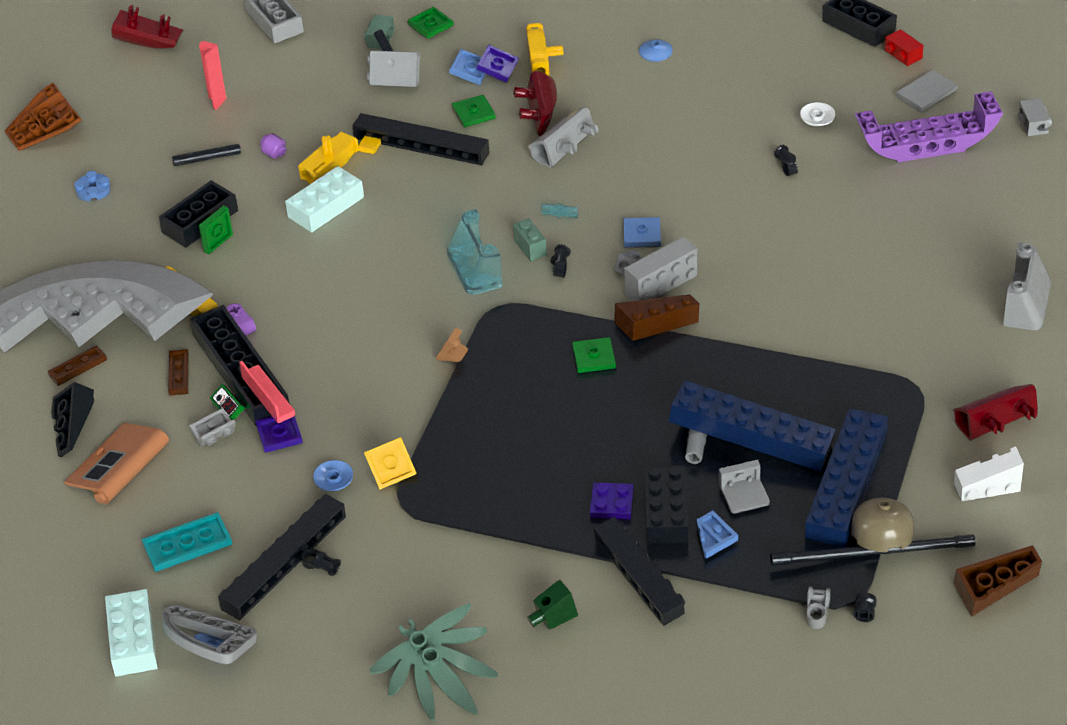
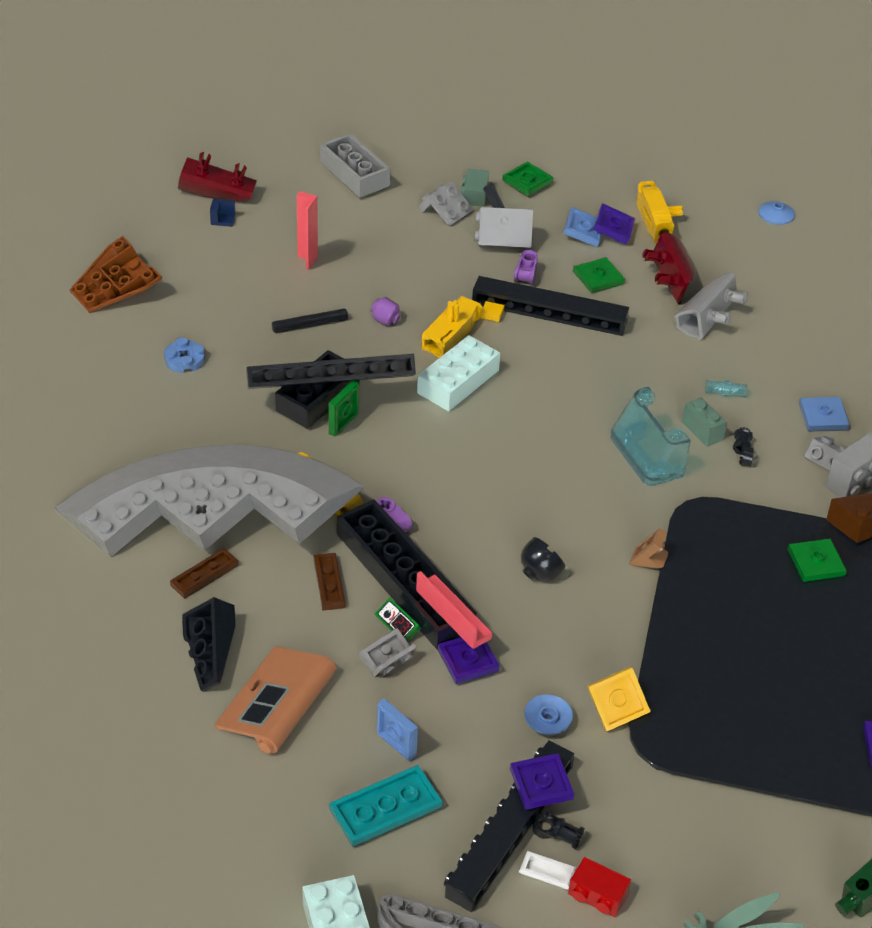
camera: 10 degrees left, 0 degrees up
(148, 59) = (222, 212): none -> dark blue panel
(204, 485) = (397, 730): none -> medium blue plate
(205, 198) = (330, 371): none -> black brick
(304, 591) = (547, 870): none -> white tile
(309, 523) = (541, 781): none -> dark purple plate
(341, 602) = (599, 887): none -> red brick
(350, 47) = (447, 203): none -> light grey bracket
(355, 356) = (539, 561): none -> black cylinder
(408, 105) = (526, 267): none -> medium lavender piece

